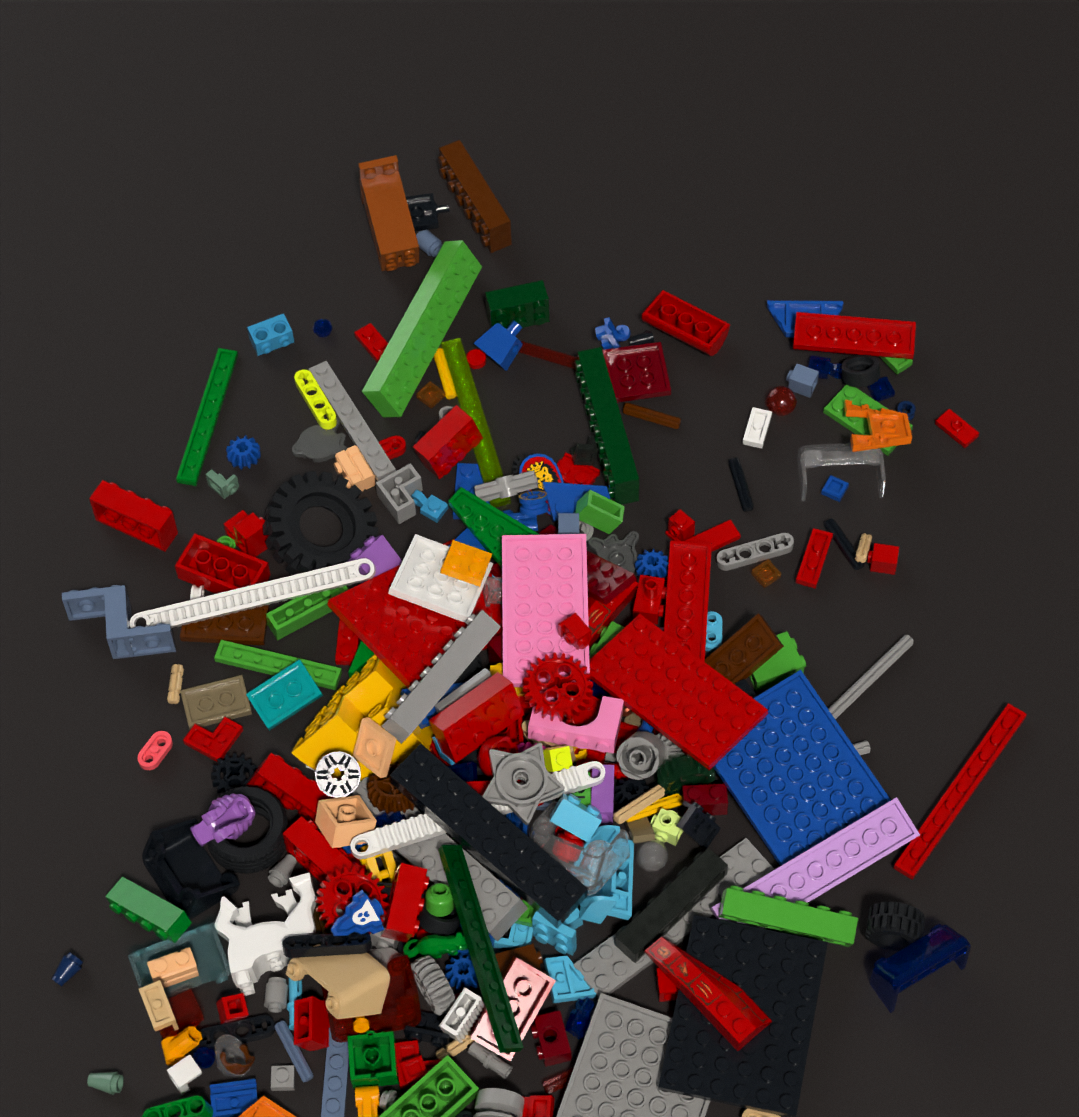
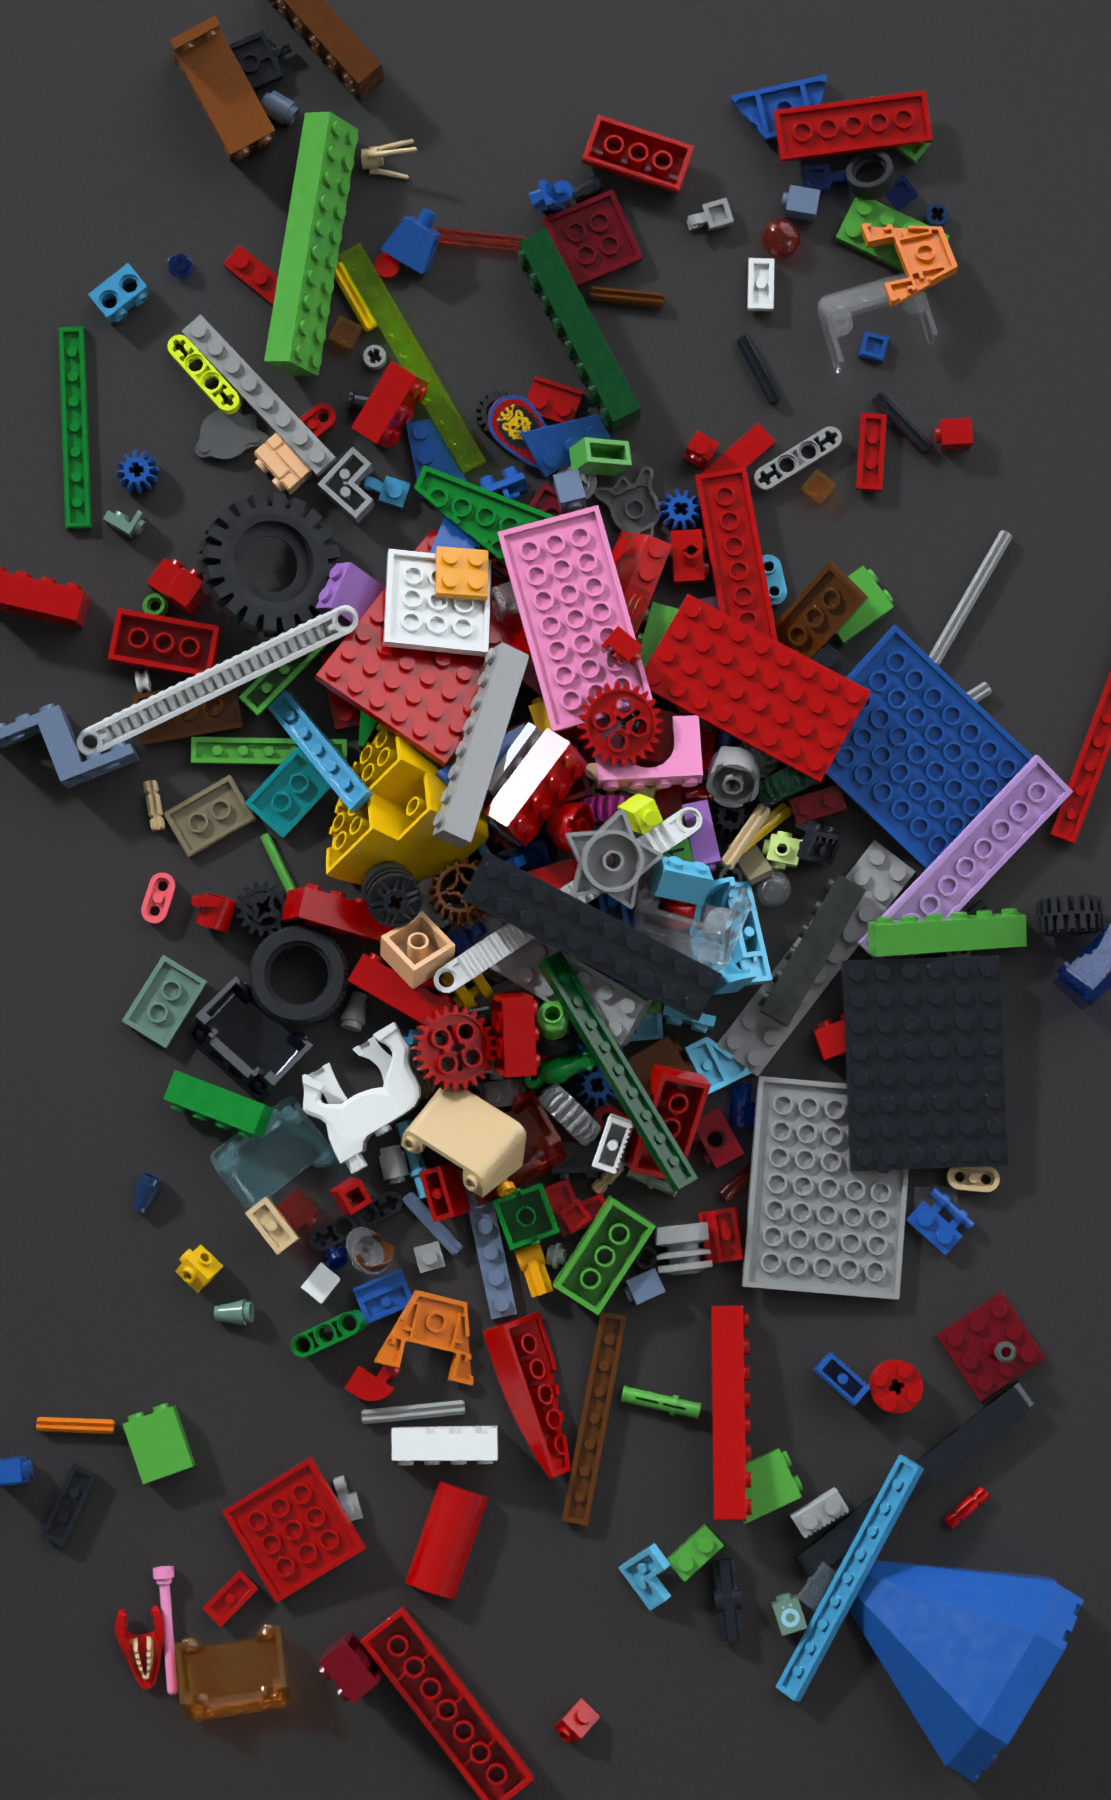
camera: 15 degrees left, 25 degrees up
(88, 1036) = (198, 1267): none -> yellow brick
(131, 827) = (165, 1001): none -> sand green plate
(173, 968) = (268, 1165): light nougat brick -> none
(178, 1046) = (305, 1252): light orange piece -> none
(195, 766) = (214, 911): none -> red piece
(214, 744) = (227, 872): red plate -> none
(225, 819) = (279, 981): medium lavender hair -> none
(258, 748) = (277, 862): none -> bright green bar
(300, 945) = (440, 1103): black beam -> none
(316, 665) = (320, 751): none -> dark azure plate
(360, 917) = (470, 1069): blue rock -> none
(374, 747) = (427, 856): light nougat plate -> none
(486, 285) = (373, 157): none -> tan plant
(507, 486) = (479, 450): light grey piece -> none
(522, 303) = (421, 184): dark green brick -> none
(533, 503) = (517, 465): blue wheel -> none
(585, 453) = (560, 374): pearl dark grey panel -> none
(606, 579) = (634, 551): dark red plate -> none
(712, 994) = (885, 1051): red wedge -> none
(734, 375) = (714, 214): none -> light grey plate
(863, 548) = (927, 426): tan axle -> none
(957, 428) = (1003, 225): red plate -> none

